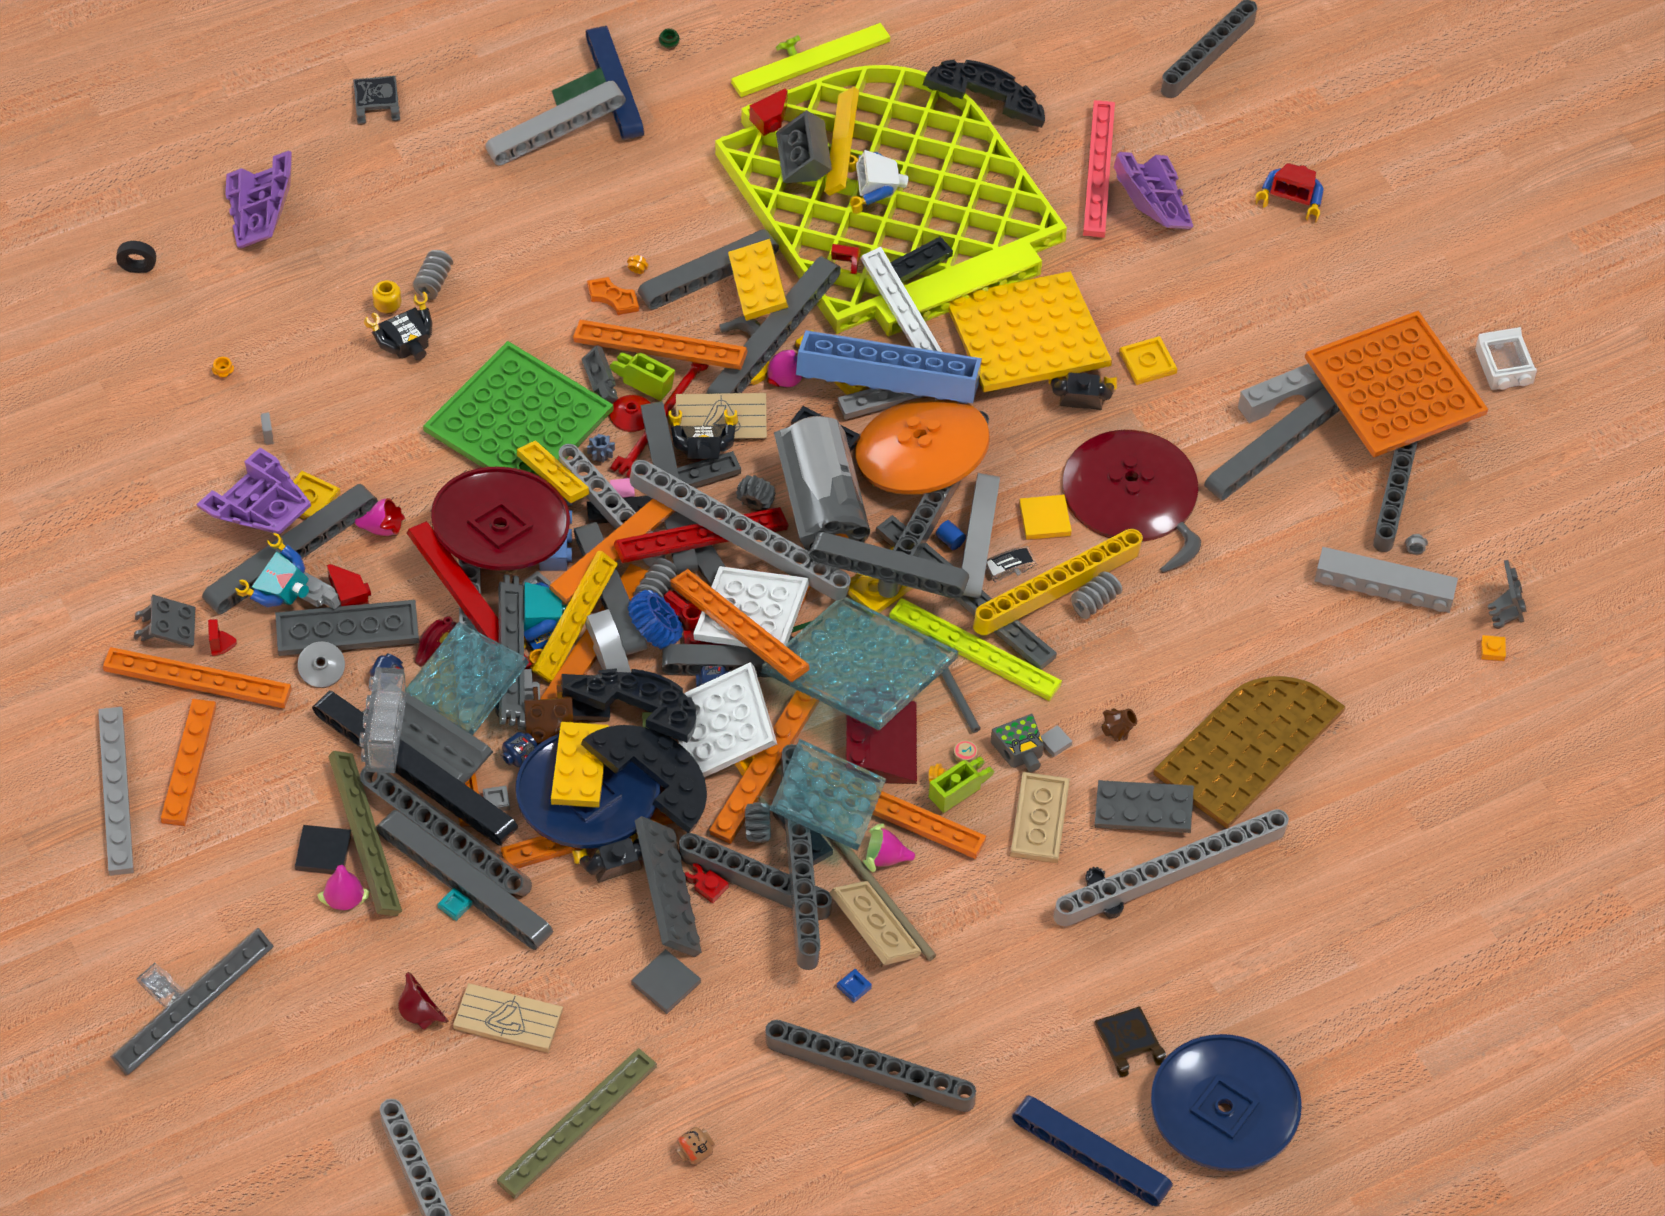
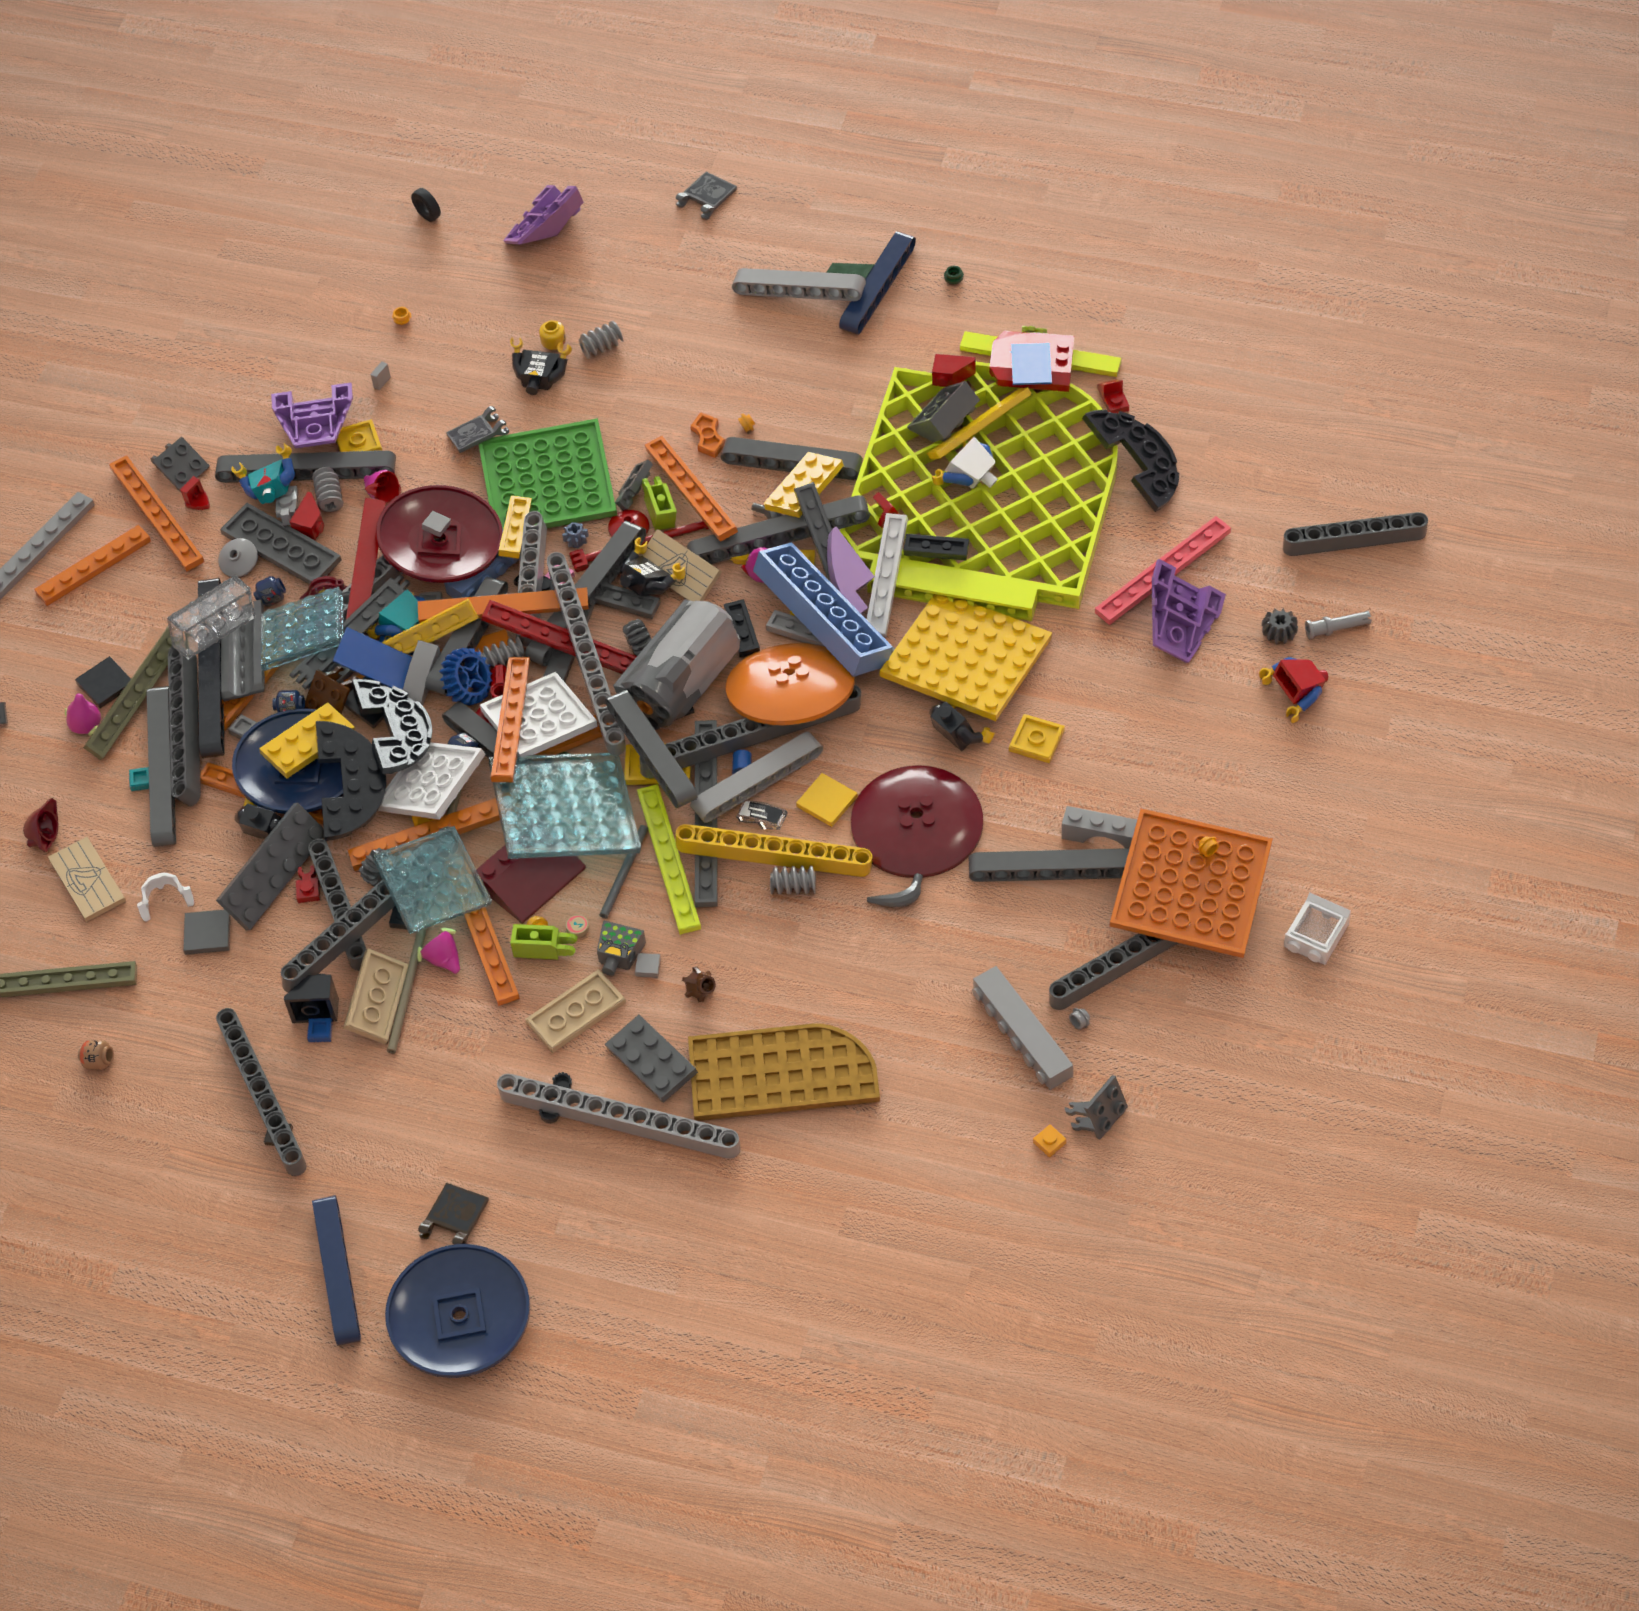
camera: 50 degrees right, 0 degrees up
(337, 553) = (327, 489): none -> light grey piece
(411, 422) = (477, 430): none -> dark grey flag
(493, 510) = (436, 523): none -> light grey tile
(561, 659) = (372, 659): none -> blue window
(575, 974) = (158, 881): none -> white helmet
(821, 307) = (815, 519): none -> dark grey tile
(823, 65) = (1060, 352): none -> wedge
(834, 66) = (1031, 363): none -> window
(837, 959) = (313, 999): none -> black slope
(866, 319) = (847, 569): none -> lavender slope
(903, 55) = (1113, 396): none -> red slope
(1232, 153) = (1279, 626): none -> dark grey gear
(1265, 130) = (1327, 625): none -> light grey pin
(1385, 346) = (1208, 846): none -> light orange plate

